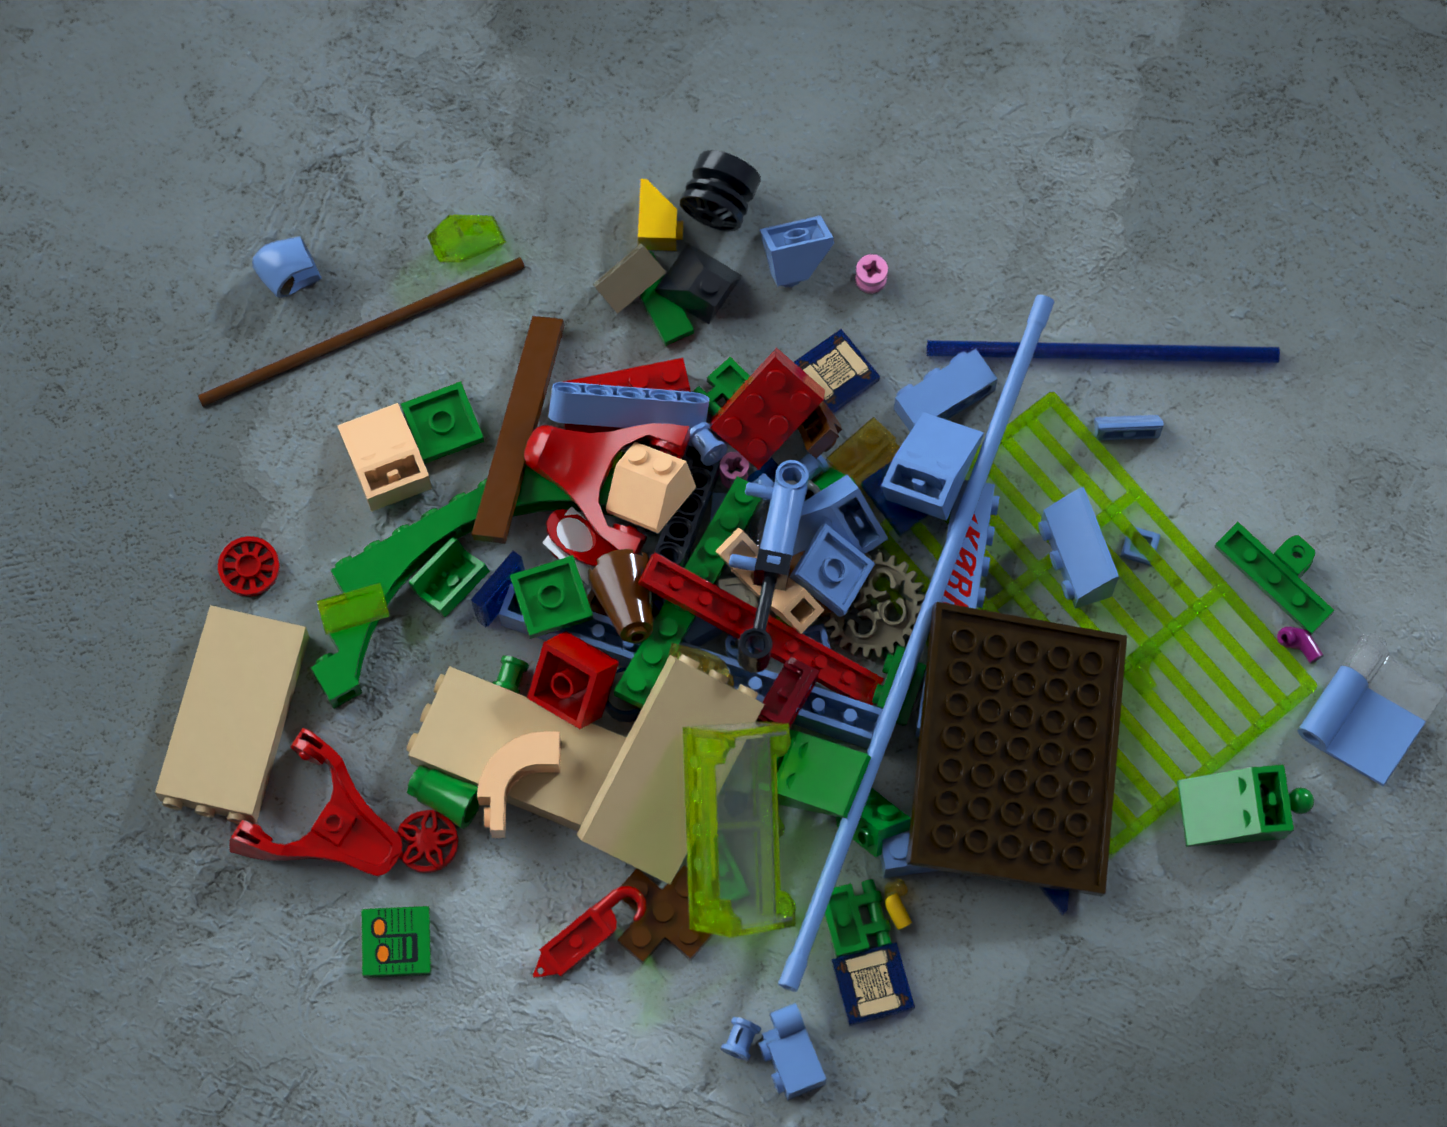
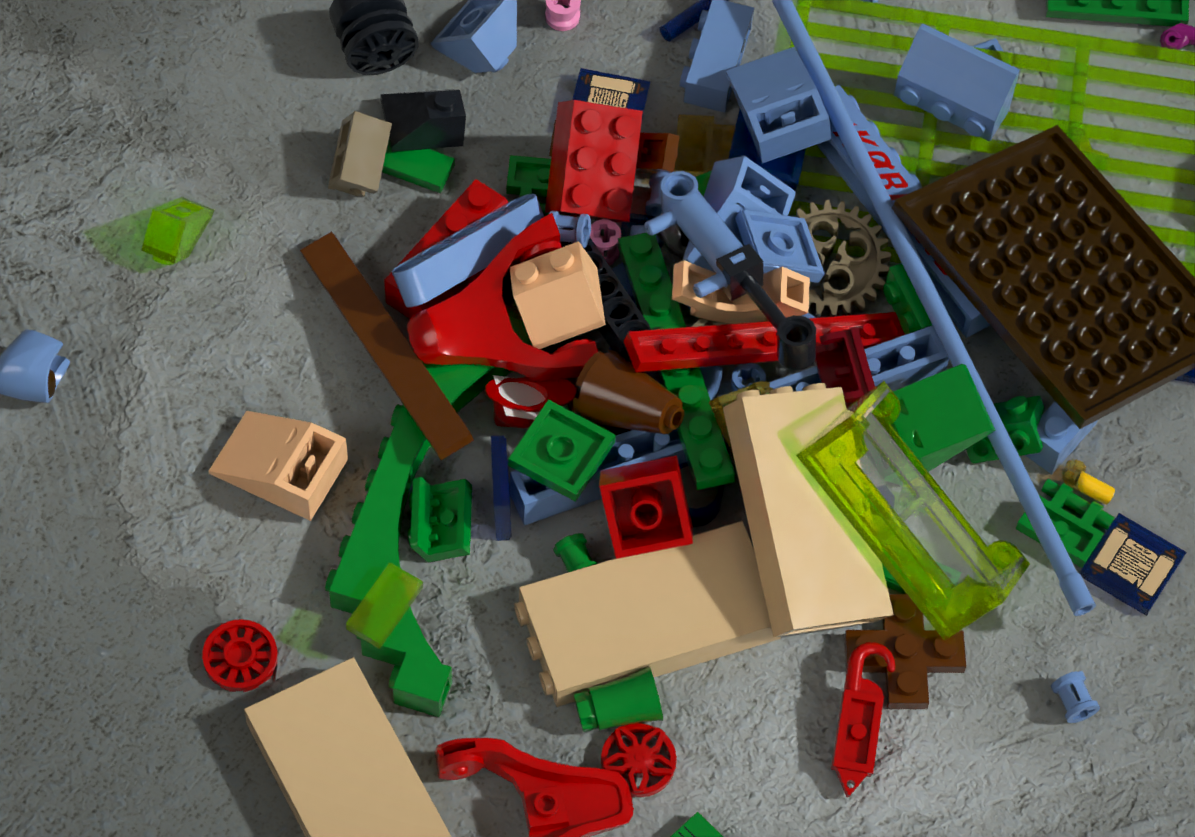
camera: 45 degrees left, 10 degrees down
(361, 331) = (148, 384): reddish brown piece -> none
(442, 422) = (306, 390): green plate -> none
(519, 757) = (670, 599): light nougat arch -> none
(657, 220) = (334, 91): yellow slope -> none
(791, 1054) = (1130, 671): medium blue hinge -> none

